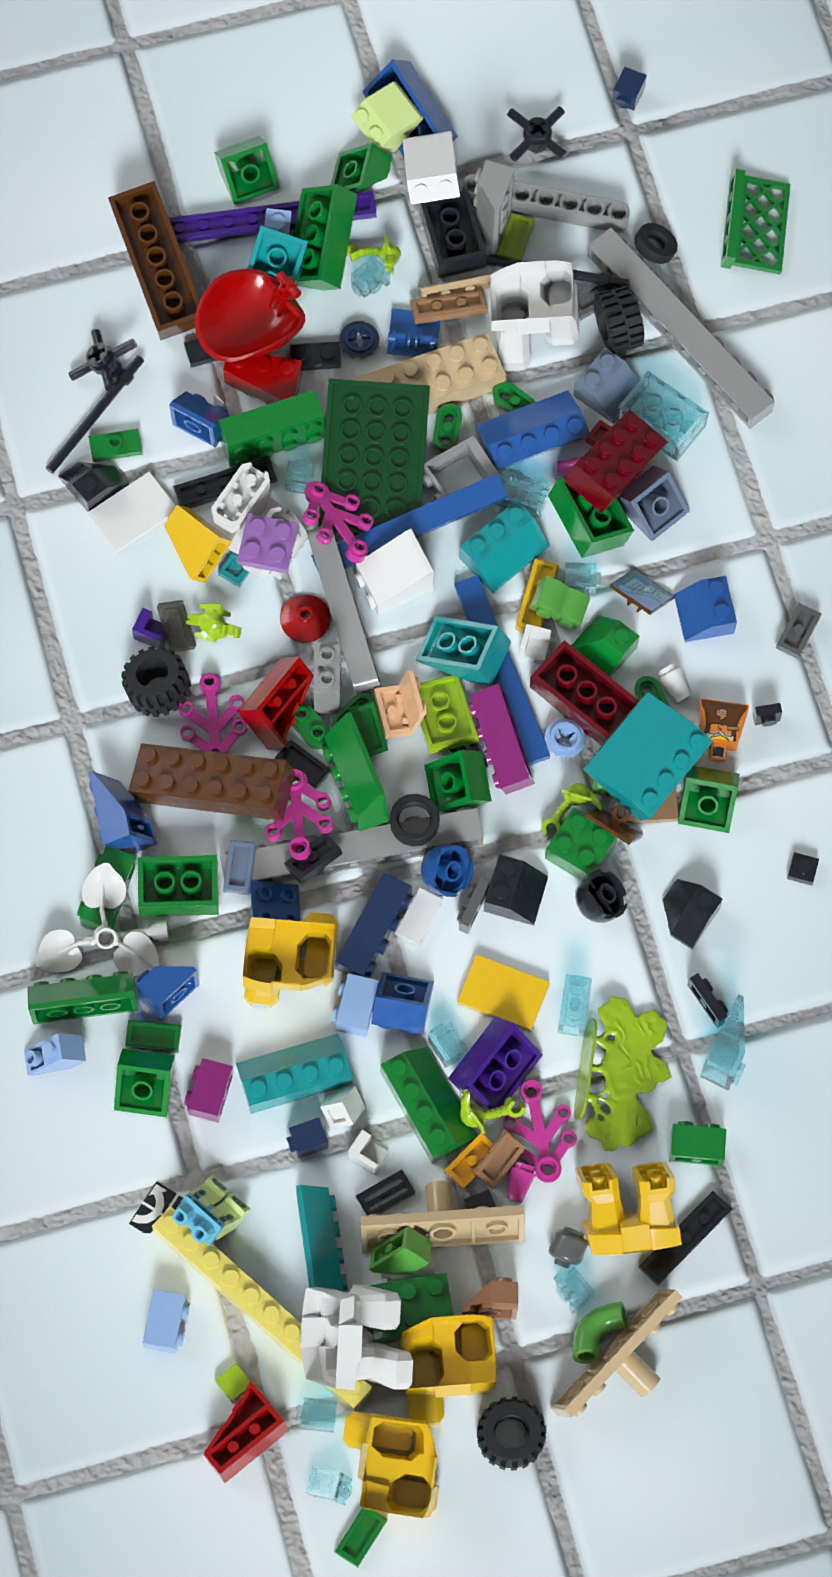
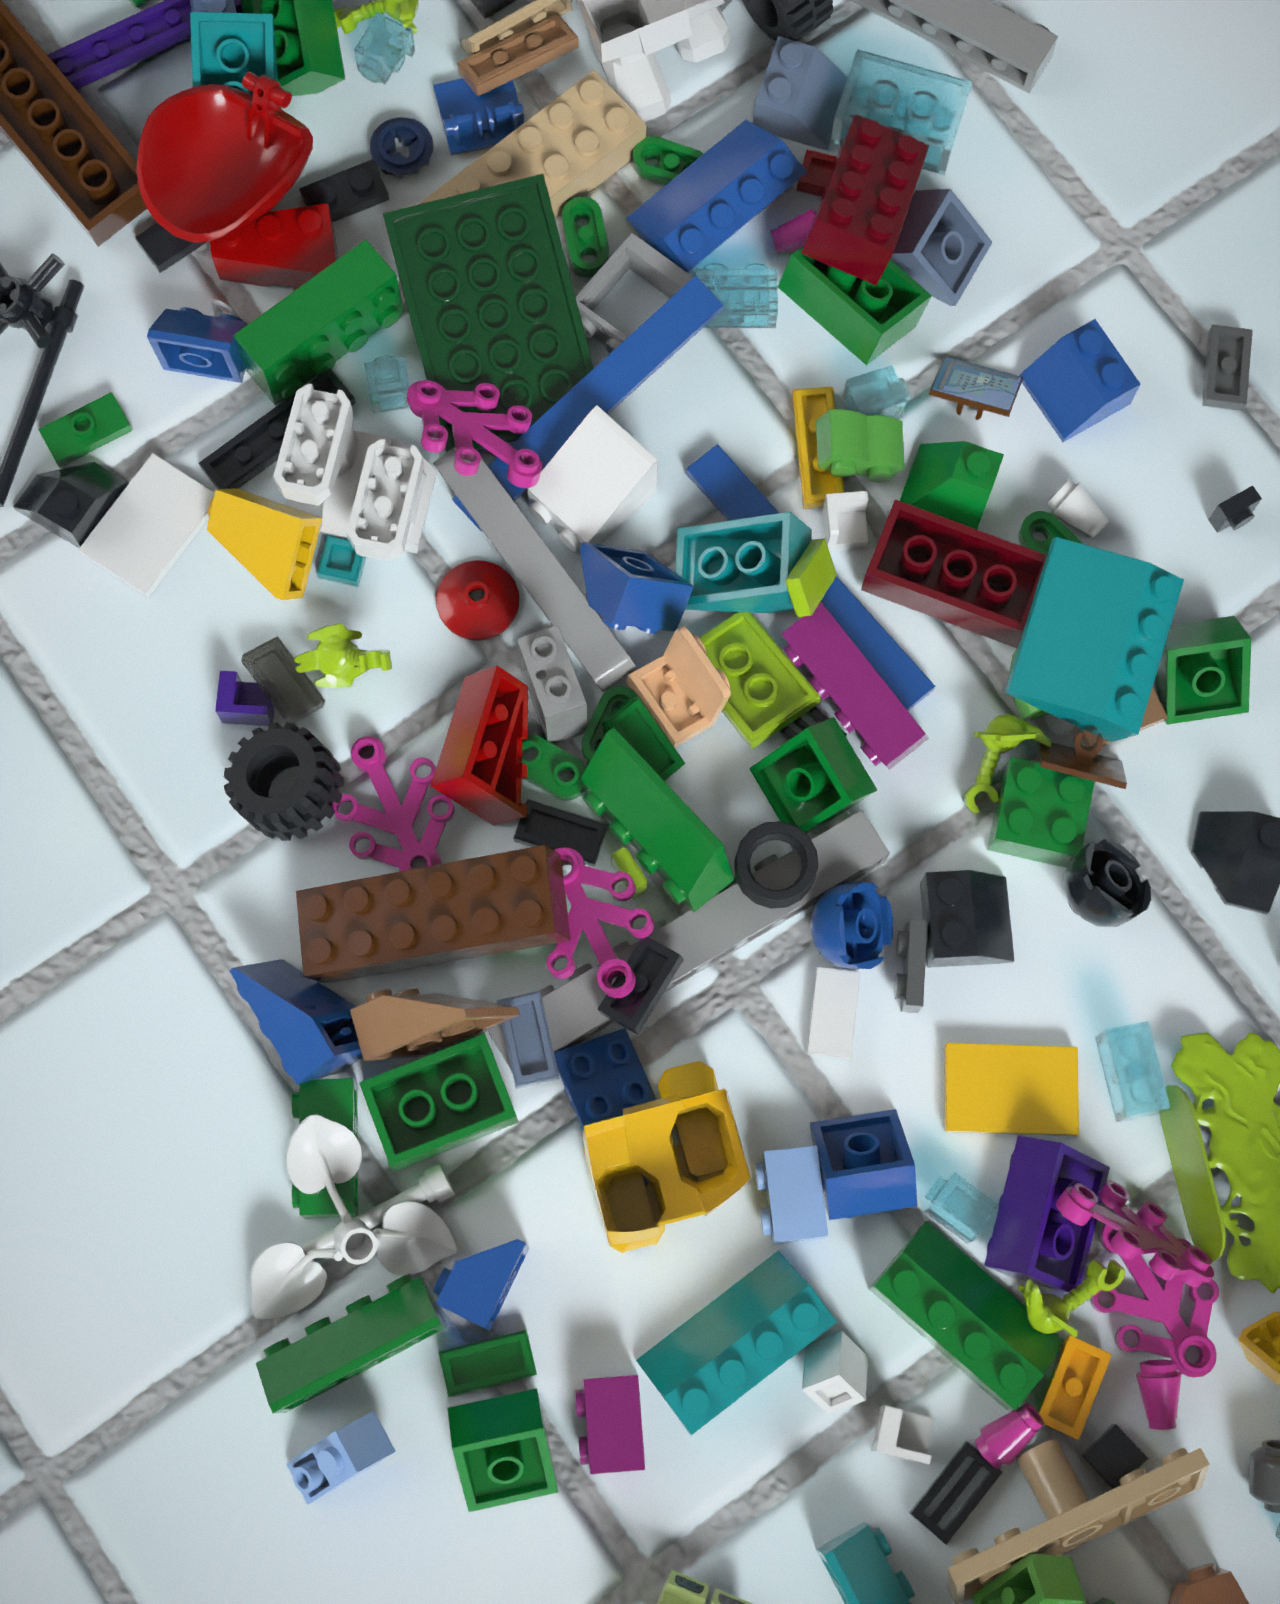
camera: 20 degrees left, 5 degrees up
(180, 837) = (420, 1023): none -> medium nougat slope
(267, 543) = (384, 503): medium lavender plate -> none
(307, 1138) = (799, 1448): dark blue brick -> none
(330, 789) = (624, 862): none -> lime tile
(374, 927) = (772, 1057): dark blue brick -> none
(394, 640) = (633, 588): none -> blue slope
(425, 1172) = (1009, 1435): none -> dark pink cone
(498, 667) = (811, 577): none -> lime tile
(499, 1159) = (1116, 1371): medium nougat tile -> none
(504, 547) = (740, 387): teal slope -> none
(535, 1085) = (1137, 1232): none -> dark pink plant
(566, 728) = (940, 634): light blue gear -> none
(722, 724) = (1177, 543): torso -> none

